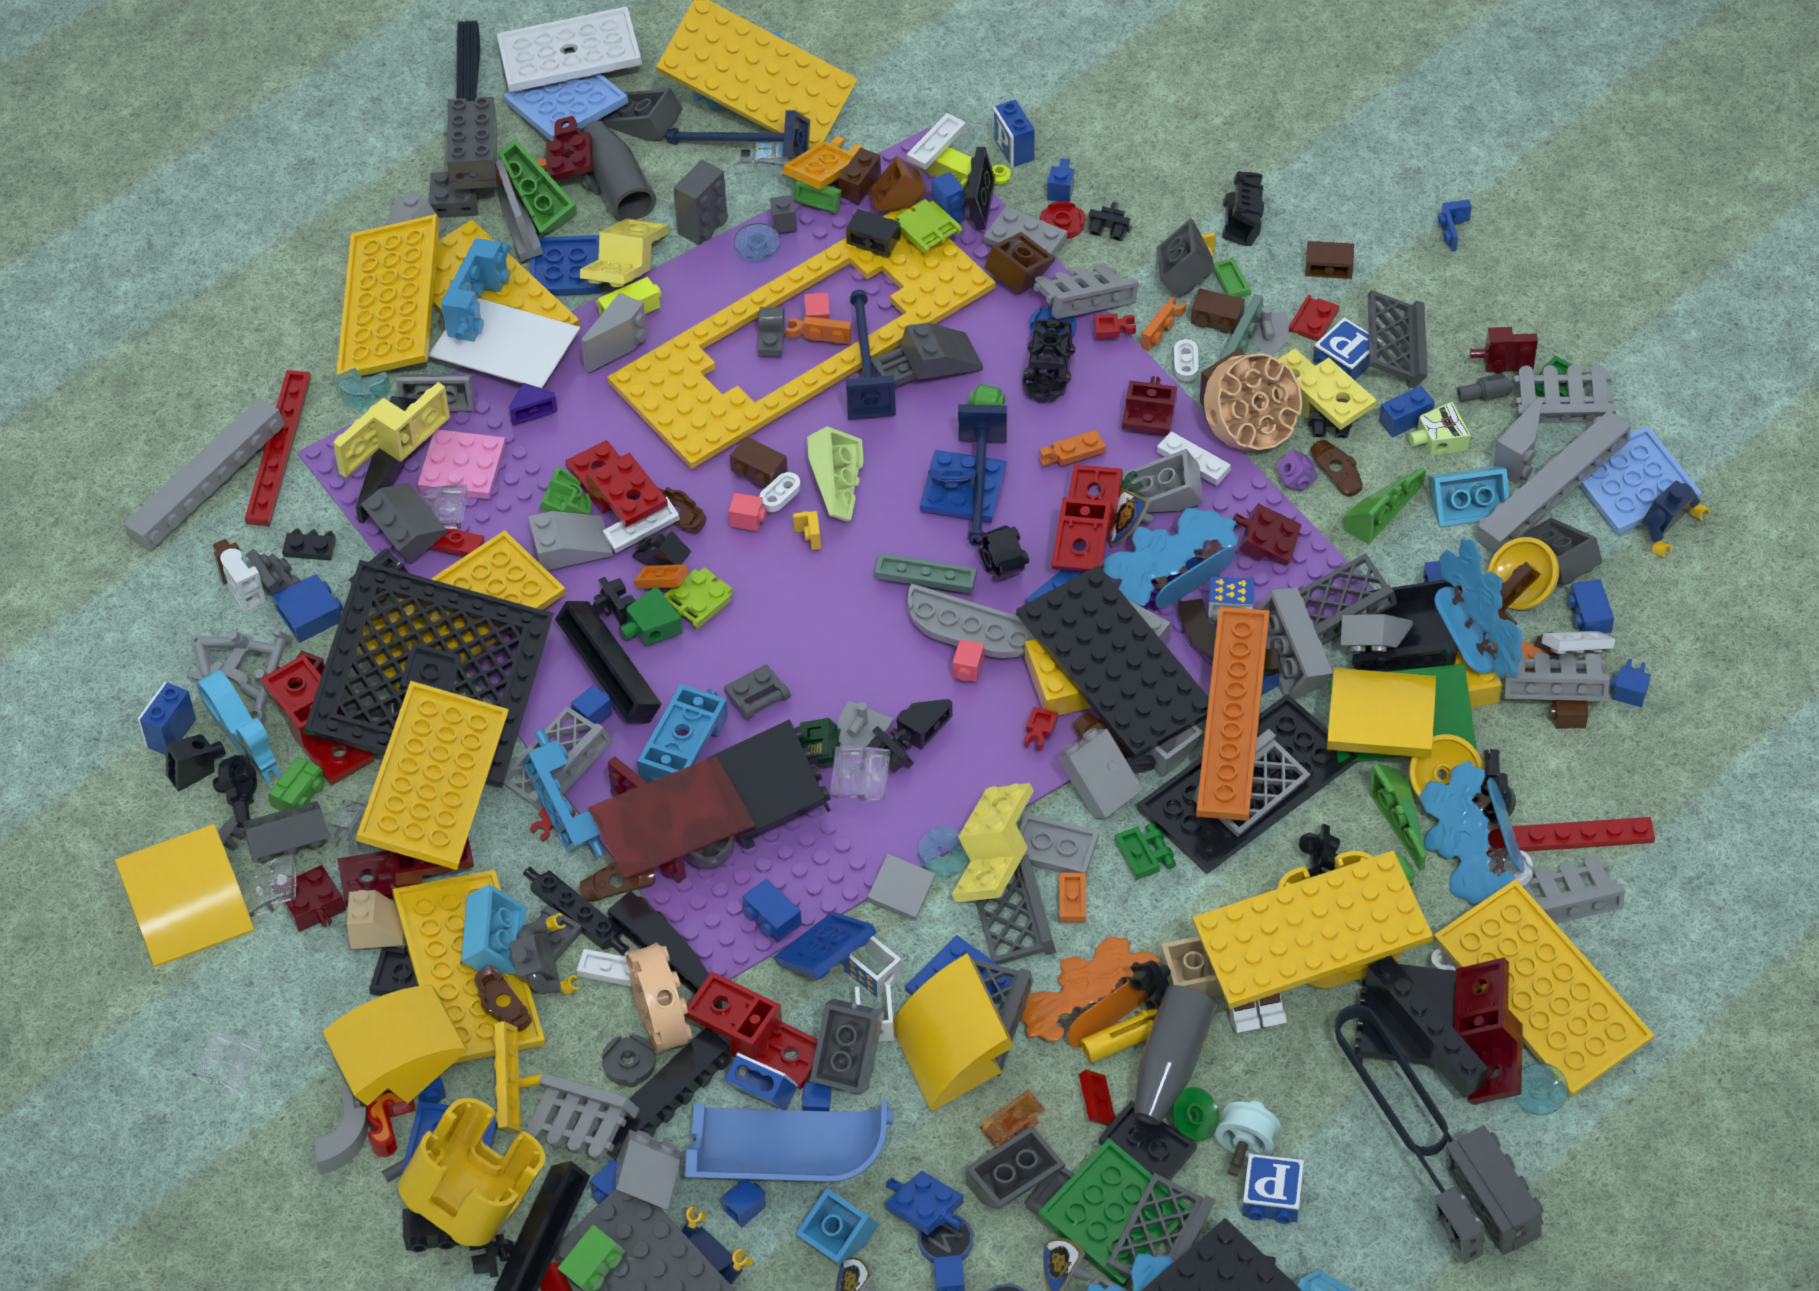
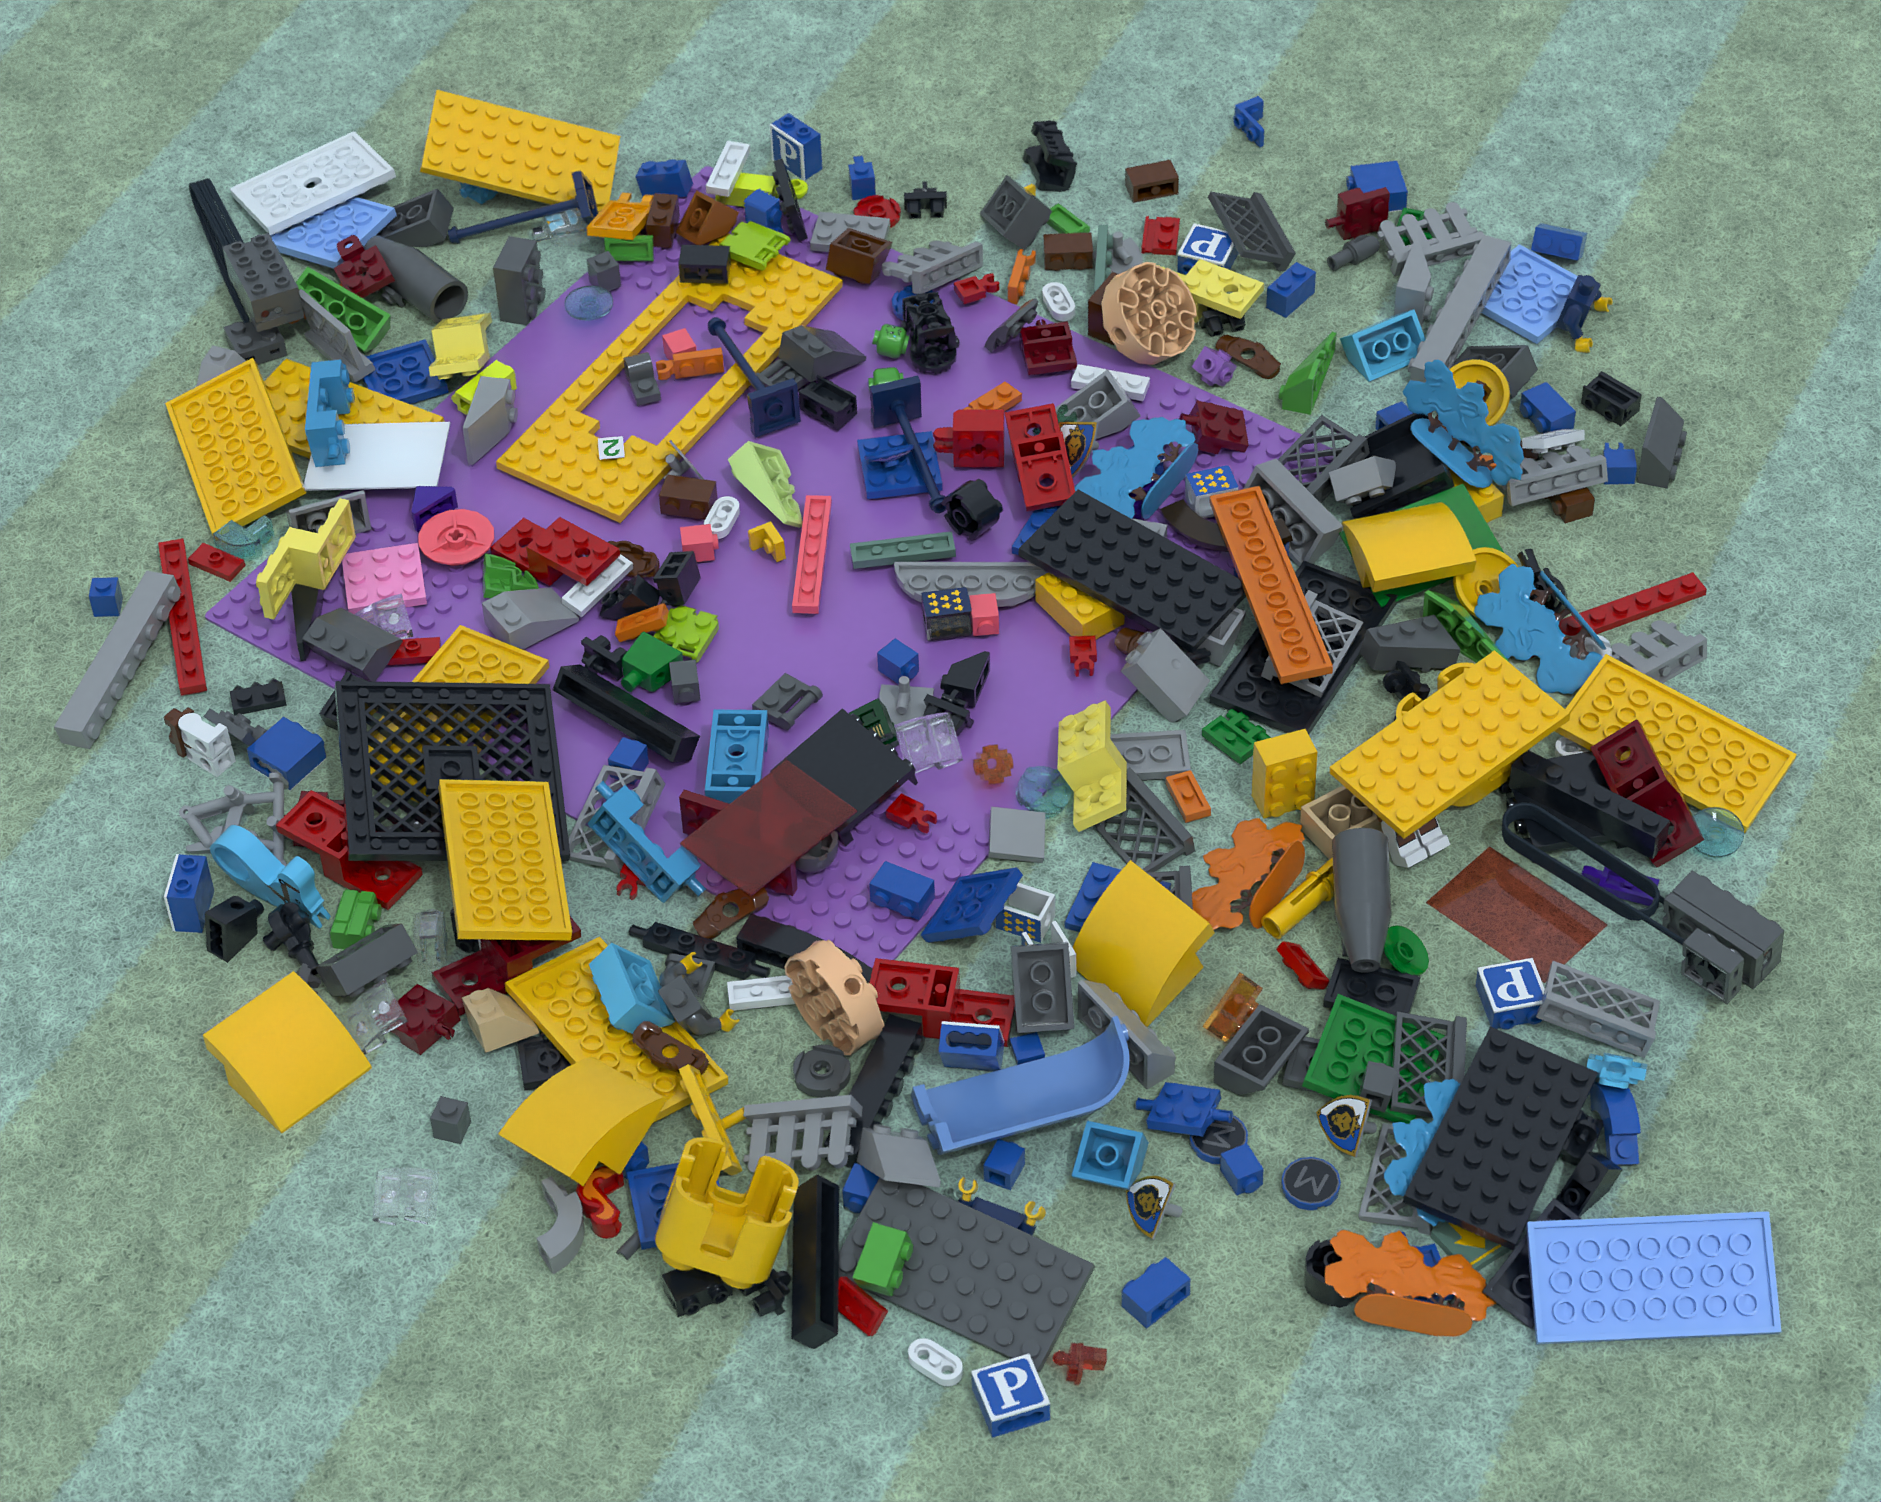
camera: 20 degrees left, 5 degrees down
(220, 409) = (105, 597): none -> blue brick
(293, 1003) = (450, 1120): none -> dark grey brick
(330, 402) = (216, 562): none -> red plate
(539, 442) = (456, 537): none -> coral piece
(674, 645) = (684, 681): none -> dark grey brick
(710, 542) = (677, 578): none -> black hinge
(711, 393) = (611, 447): none -> white sticker
(767, 427) = (677, 467): none -> light grey shield
(813, 834) = (908, 812): none -> red plate
(843, 553) = (812, 554): none -> coral plate
(870, 684) = (898, 661): none -> blue brick
(880, 133) = (664, 178): none -> blue brick
(904, 821) = (1002, 767): none -> clear orange brick
(910, 1123) = (1148, 1057): none -> light grey slope
(926, 404) = (828, 402): none -> black hinge
(933, 649) = (946, 613): none -> piece
(1010, 358) = (890, 341): none -> bright green head
(1037, 481) = (974, 439): none -> red hinge
(1100, 1239) = (1377, 1084): none -> dark grey brick
(1122, 377) = (1012, 325): none -> dark grey slope
(1152, 979) = (1311, 841): black hips -> none
(1160, 906) = (1284, 773): none -> yellow brick
(1246, 1131) = (1464, 947): light aqua wheel -> none
(1320, 1109) = (1516, 912): none -> clear red piece
(1334, 1241) = (1595, 1020): none -> light grey fence
(1345, 809) = (1416, 642): none -> dark grey wedge
(1418, 1111) = (1617, 885): none -> dark purple plate
(1441, 431) = (1332, 298): yellowish green torso -> none
(1544, 319) = (1377, 176): none -> blue piece
(1658, 614) = (1611, 399): none -> black hinge
(1680, 677) = (1661, 446): none -> dark grey slope
(1686, 434) = (1559, 241): none -> blue brick

